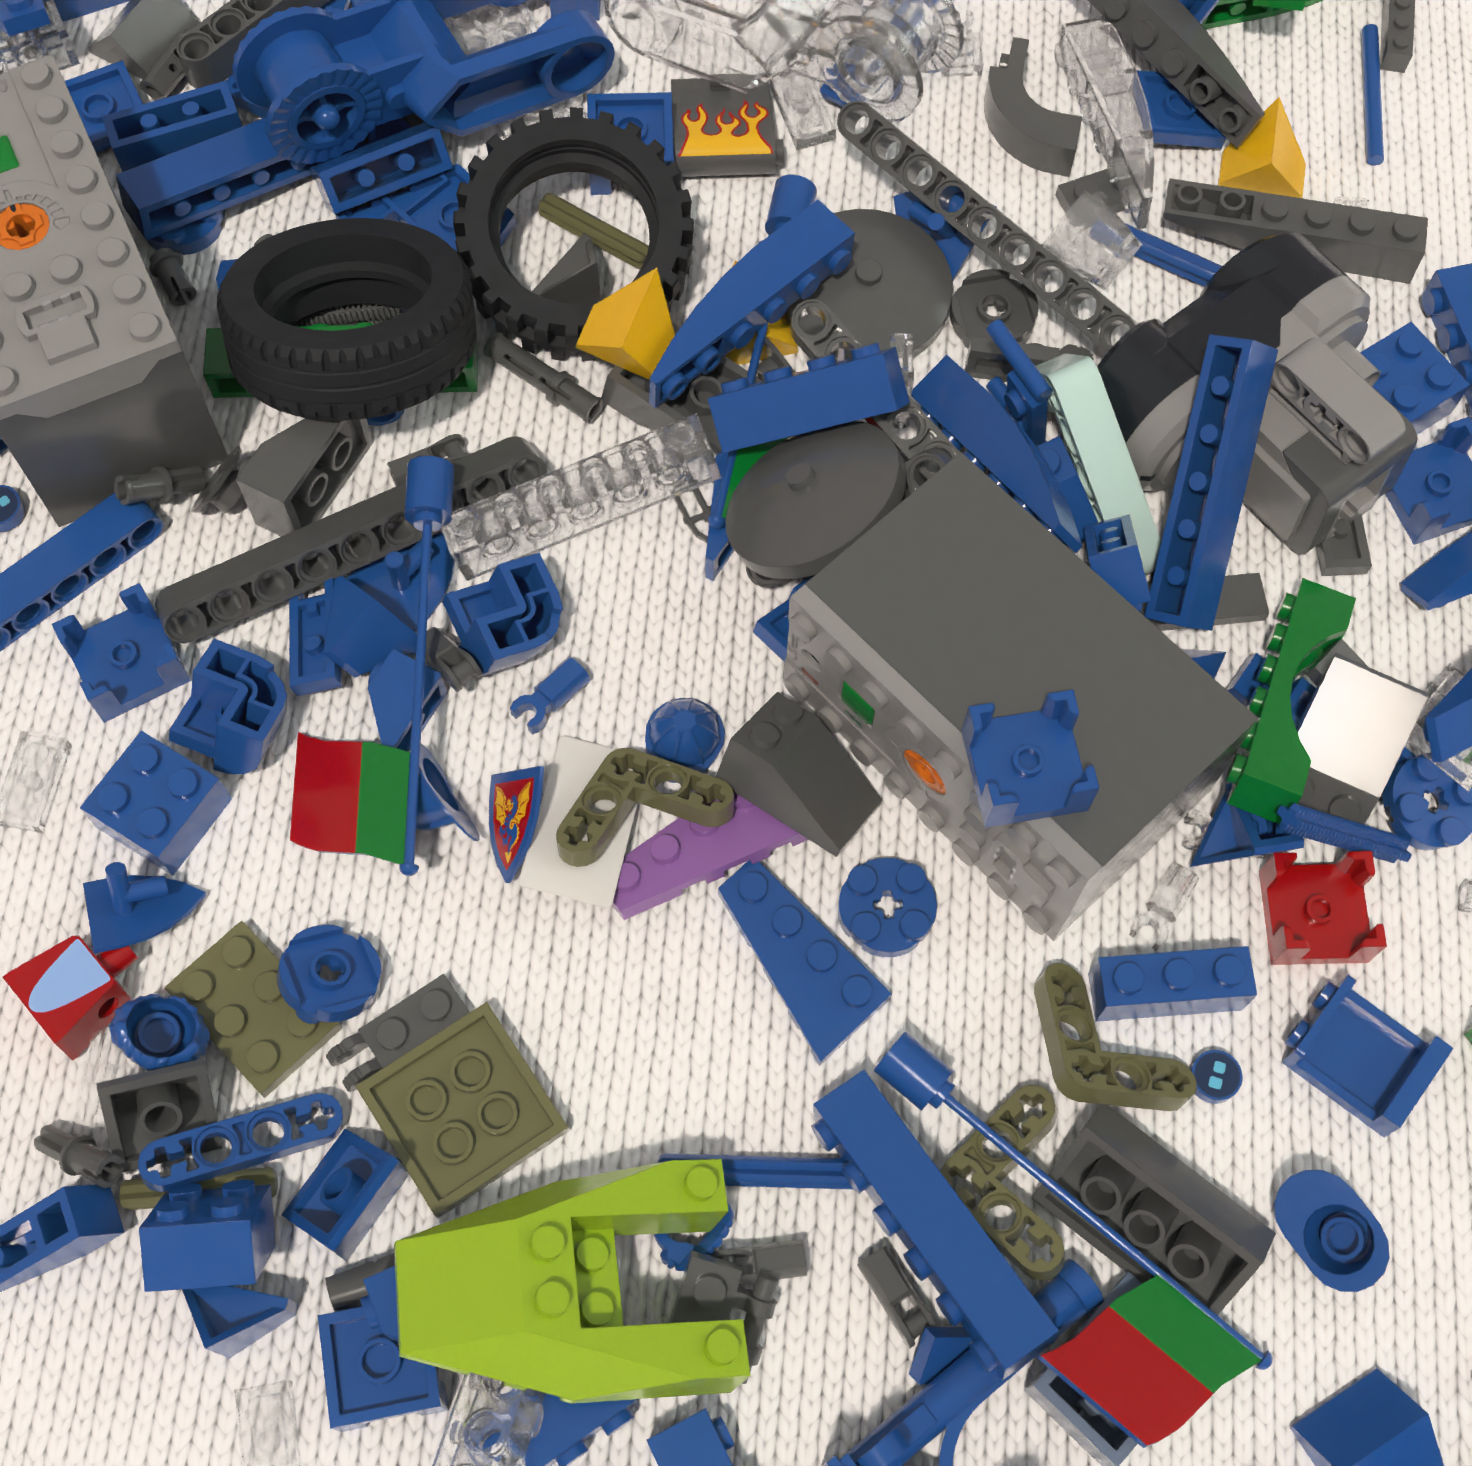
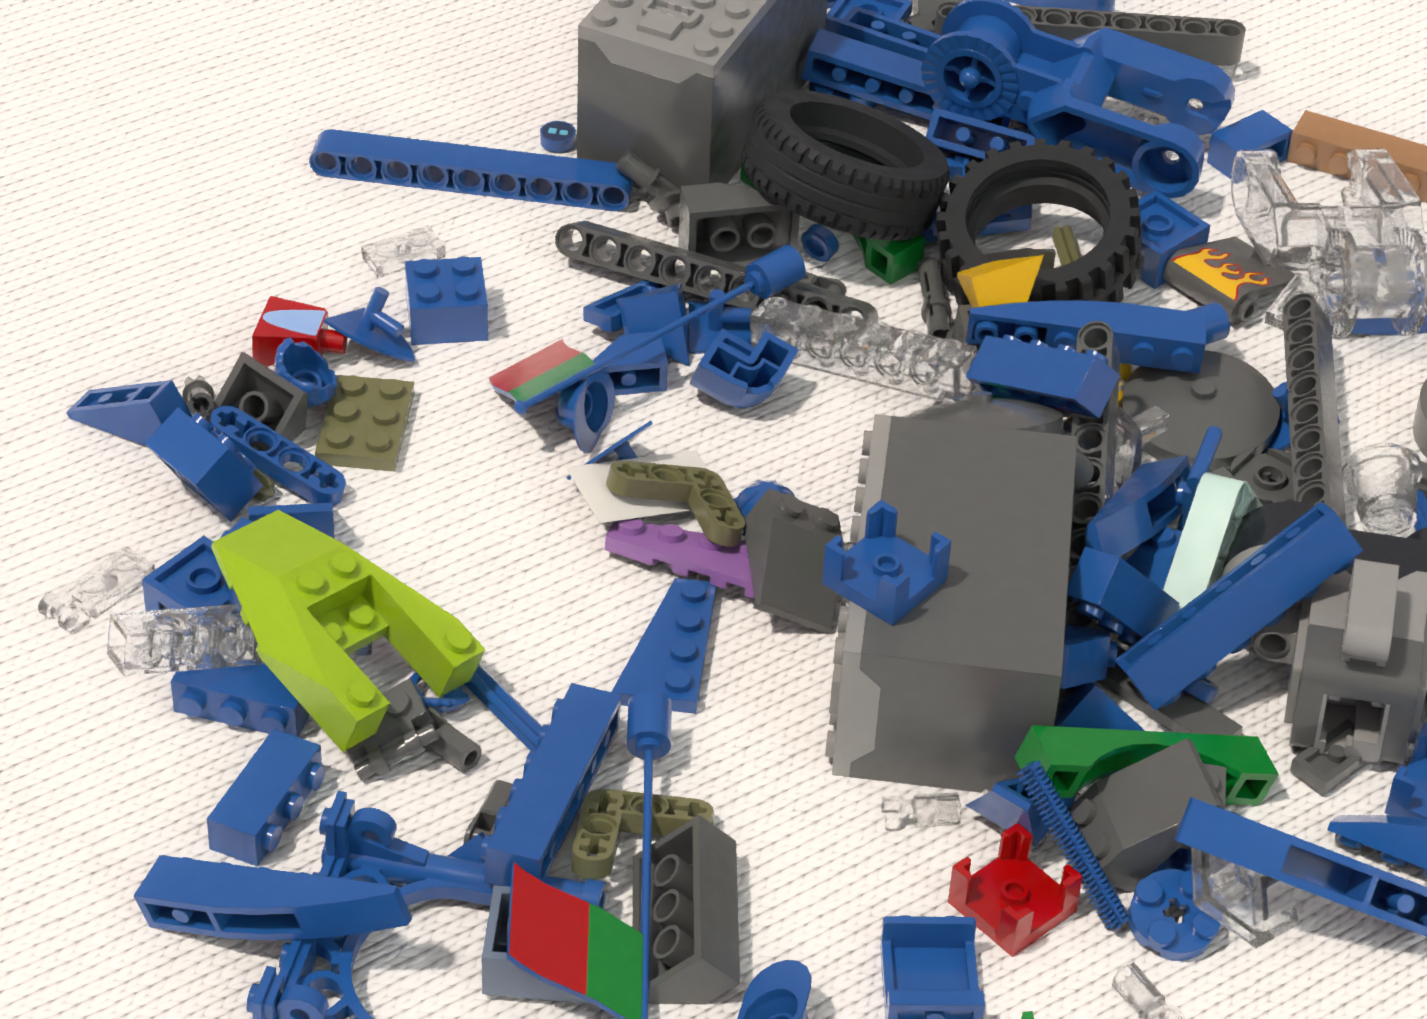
camera: 50 degrees right, 25 degrees down
(123, 657) = (520, 239): blue panel -> none
(231, 708) = (541, 294): blue brick -> none
(235, 1317) = (166, 513): blue slope -> none
(323, 999) = (400, 431): blue plate -> none
(400, 1029) = (418, 493): dark grey hinge -> none
(450, 659) = (683, 363): dark grey bar -> none
(462, 1109) = (409, 537): olive plate -> none
(551, 693) = (717, 430): blue bar -> none
(868, 927) = (757, 652): blue plate -> none
(1089, 1060) = (745, 805): olive beam -> none
(1172, 983) = (863, 836): blue brick -> none
(1216, 1076) = (825, 907): dark blue tile -> none

